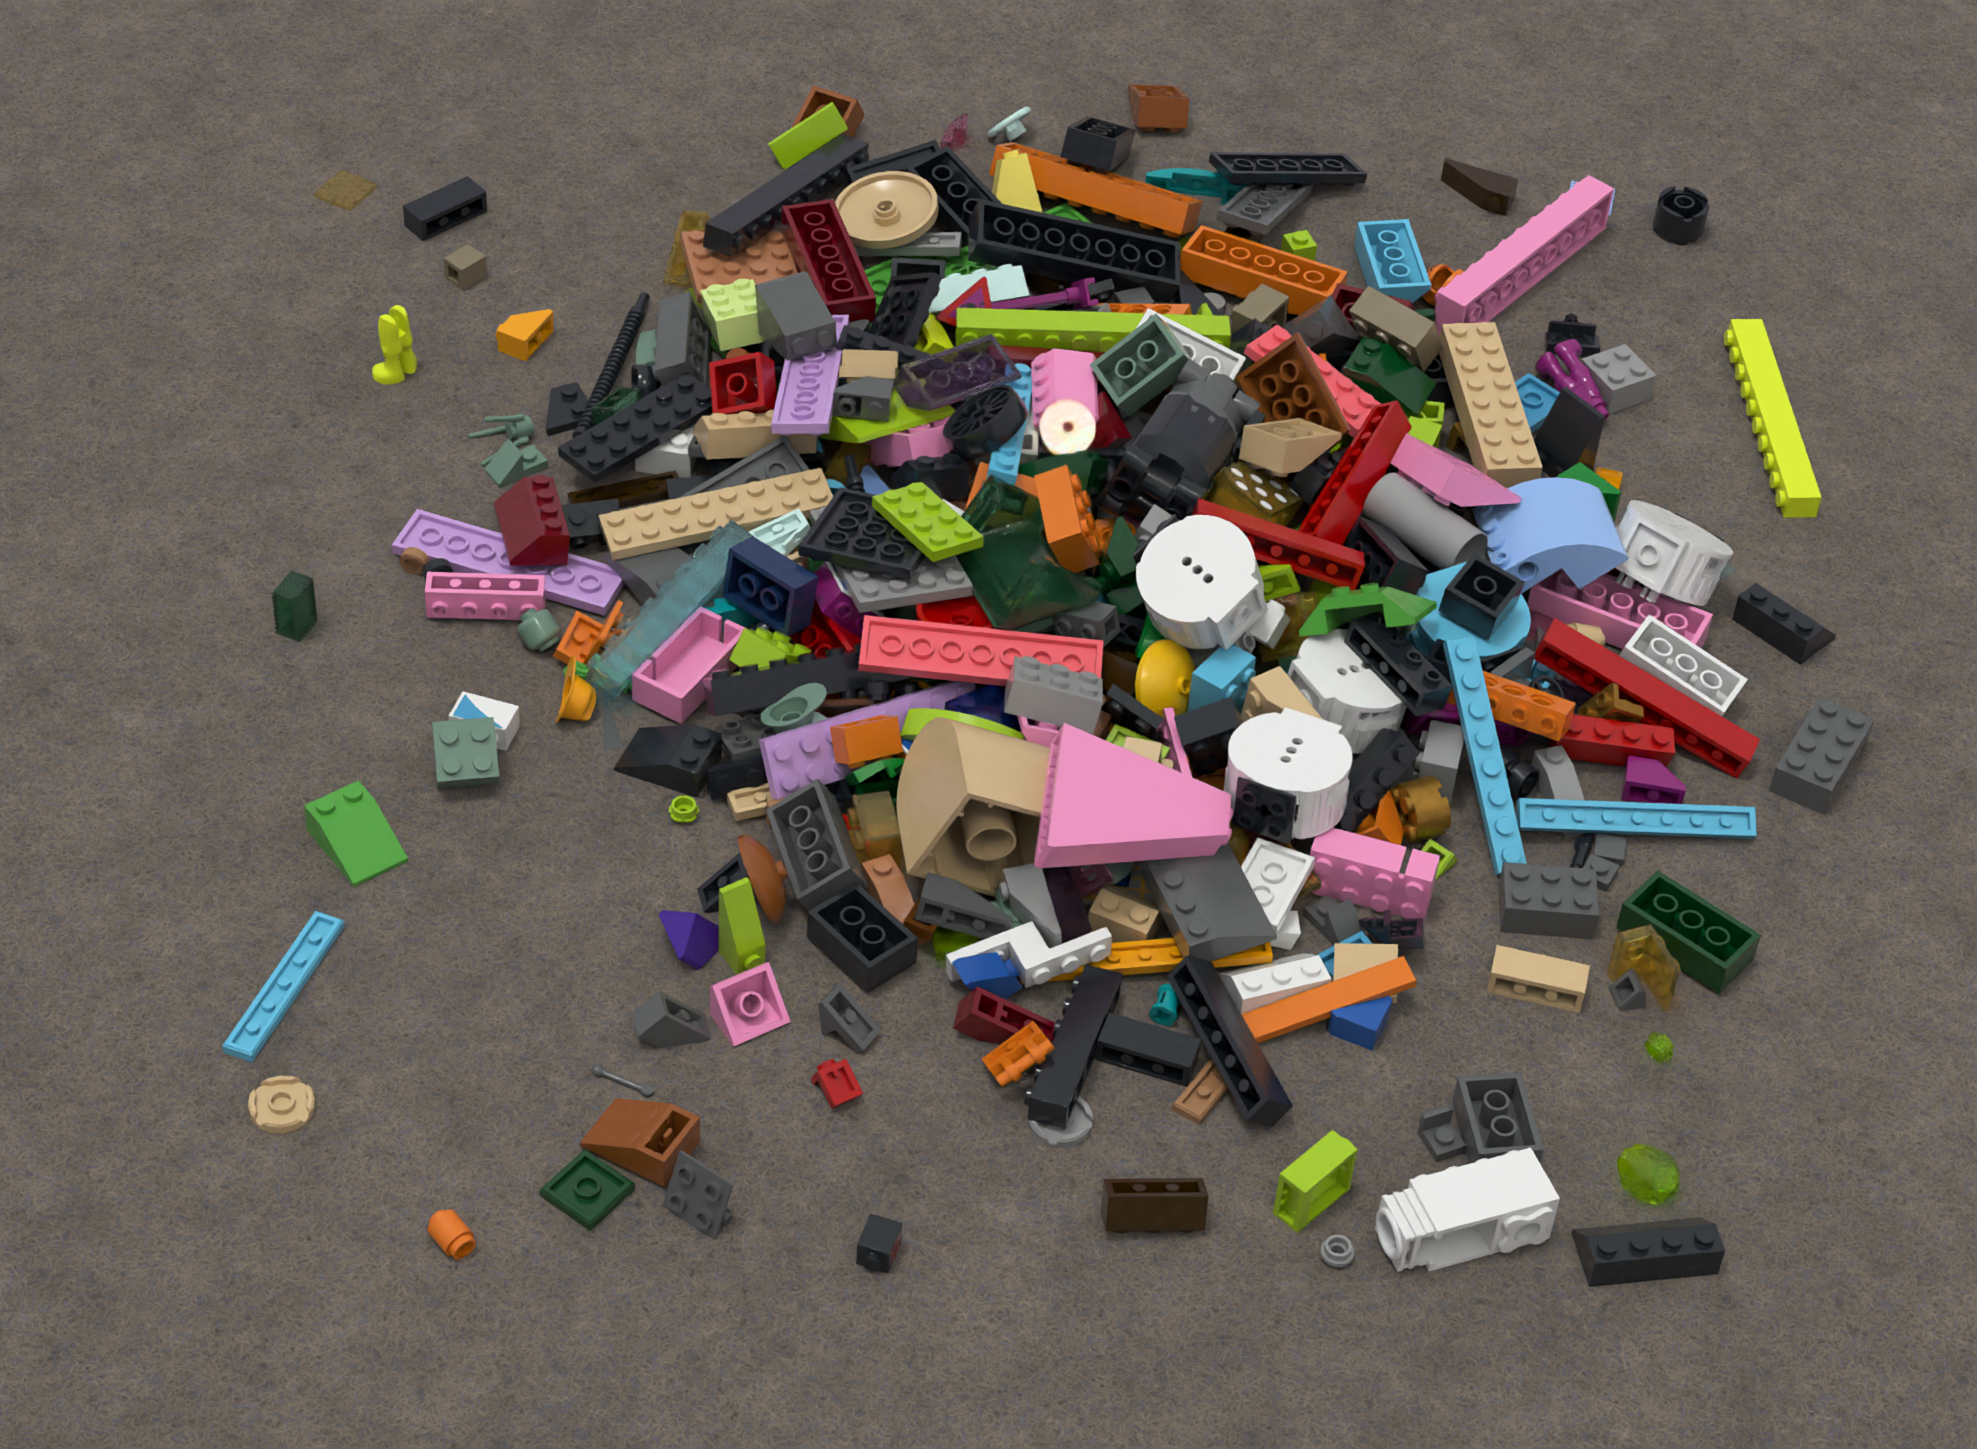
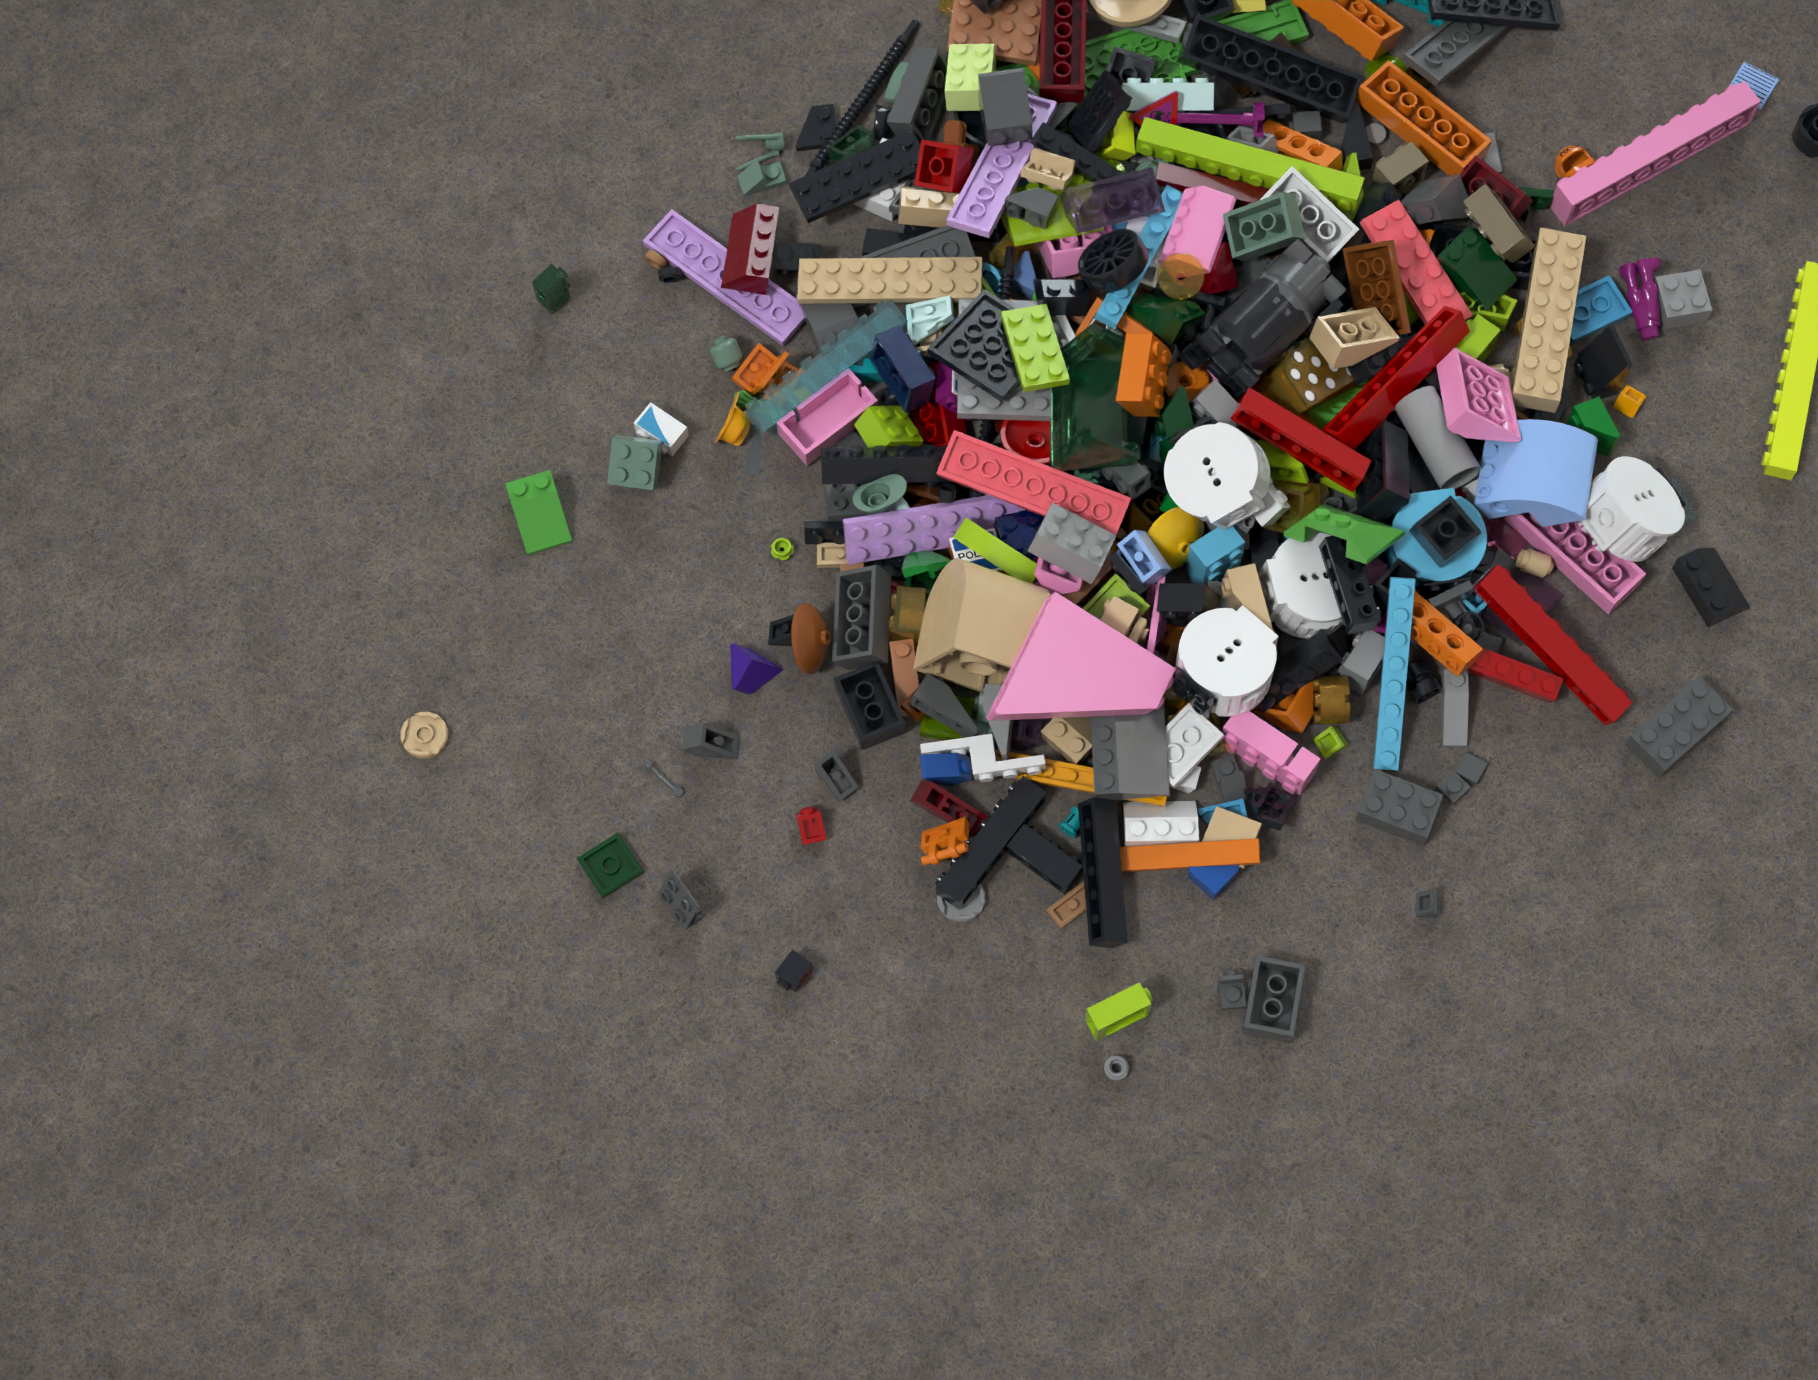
camera: 25 degrees right, 25 degrees up
(283, 986) = (454, 632): medium azure tile -> none
(396, 347) = (699, 44): neon yellow piece -> none
(451, 1234) = (506, 878): orange brick -> none
(483, 595) = (695, 311): bright pink brick -> none
(524, 333) = (807, 44): light orange slope -> none
(627, 492) = (835, 227): dark brown tile -> none
(644, 1137) = (659, 835): dark orange slope -> none
(672, 756) = (787, 497): black slope -> none
(740, 928) = (780, 681): lime slope -> none
(748, 1004) = (770, 743): bright pink slope -> none
(866, 740) = (925, 536): orange brick -> none
(1146, 690) = (1144, 557): none -> light blue brick
(1154, 1204) = (996, 996): dark brown brick -> none
(1299, 244) = (1467, 97): lime brick -> none
(1391, 258) = (1539, 131): medium azure slope -> none
(1468, 1212) = (1218, 1069): white piece -> none
(1480, 186) = (1658, 58): dark brown slope -> none
(1538, 978) = (1362, 874): tan brick -> none
(1572, 329) = (1665, 242): black slope -> none
(1582, 848) = (1448, 763): black piece -> none
(1609, 706) = (1513, 646): pearl gold bracket -> none
(1636, 818) = (1501, 749): medium azure plate -> none
(1649, 958) = (1449, 878): clear yellow bracket -> none
(1649, 1173) = (1371, 1068): clear neon green hair -> none
(1649, 1251) = (1343, 1130): black slope -> none
(1650, 782) = (1528, 717): magenta slope -> none
(1659, 1046) = (1428, 960): clear neon green plate -> none
(1683, 665) = (1594, 622): white brick -> none
(1695, 932) = (1494, 867): dark green brick -> none

